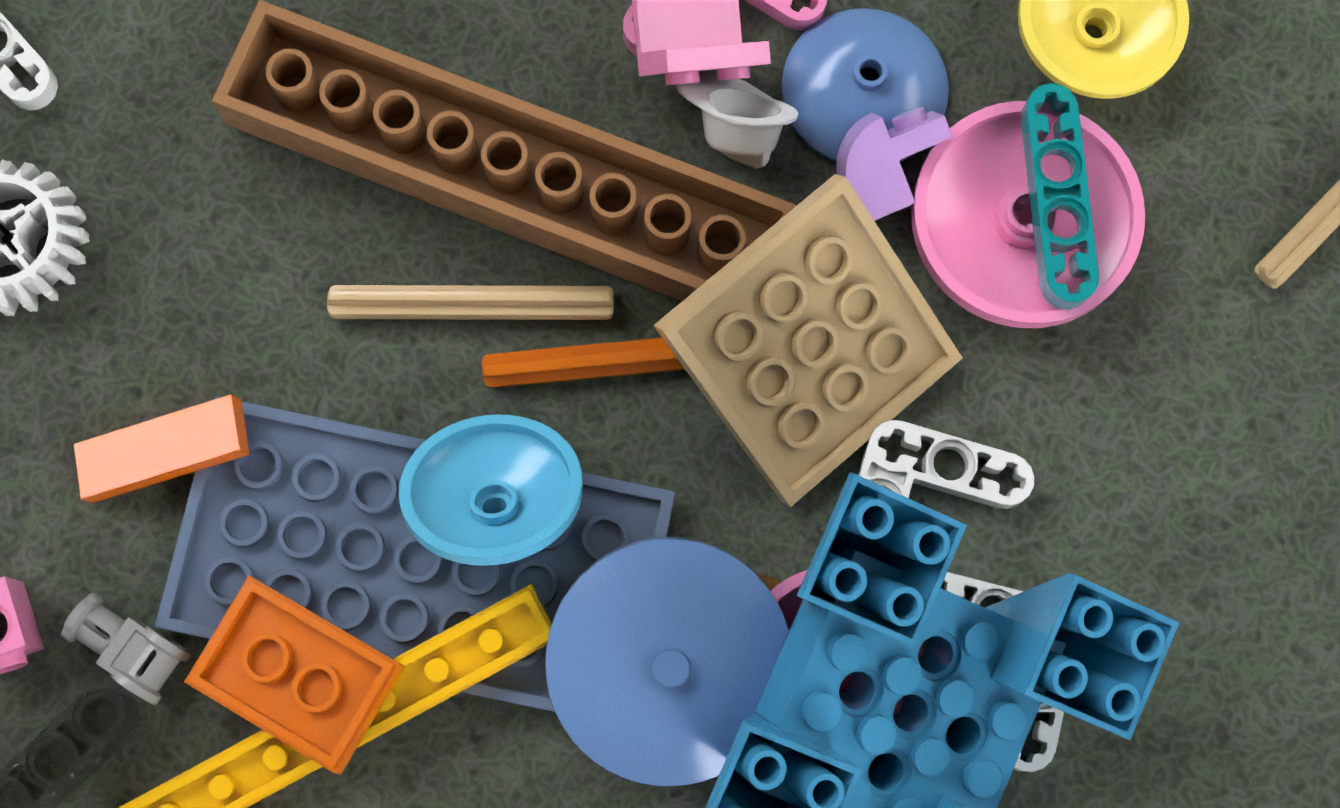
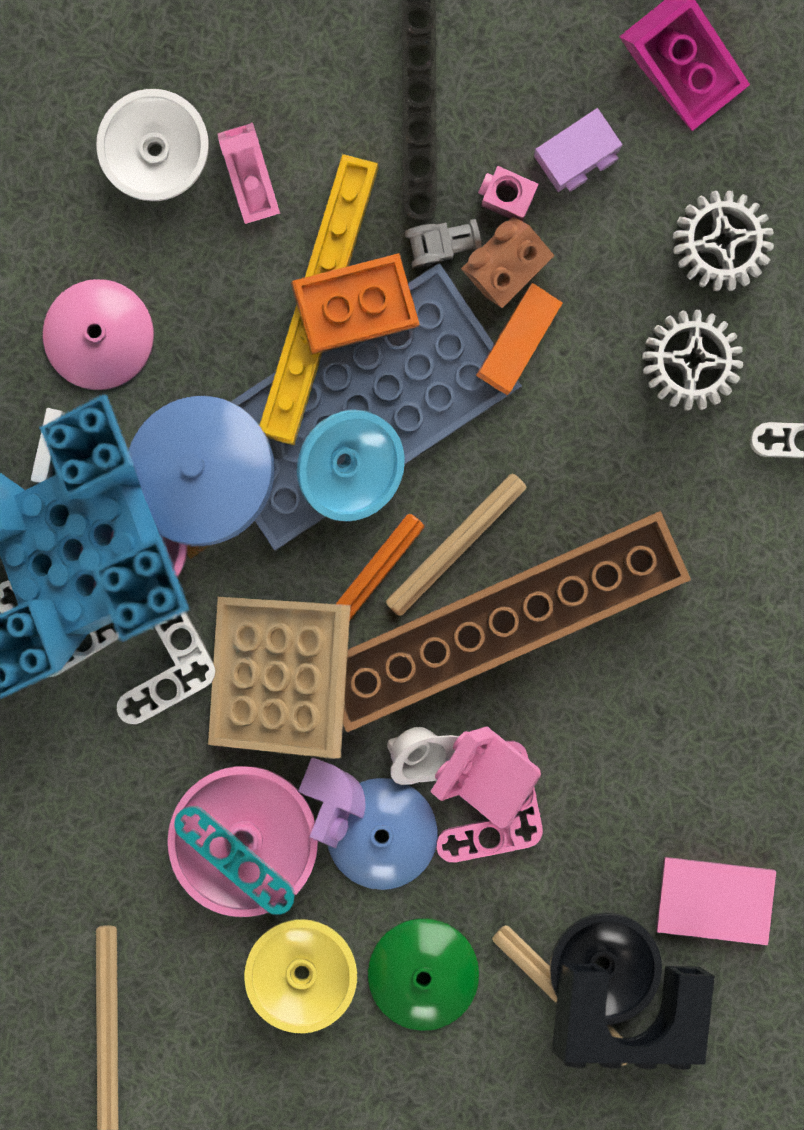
camera: 140 degrees right, 10 degrees up
(64, 551) = (507, 261): none -> nougat brick

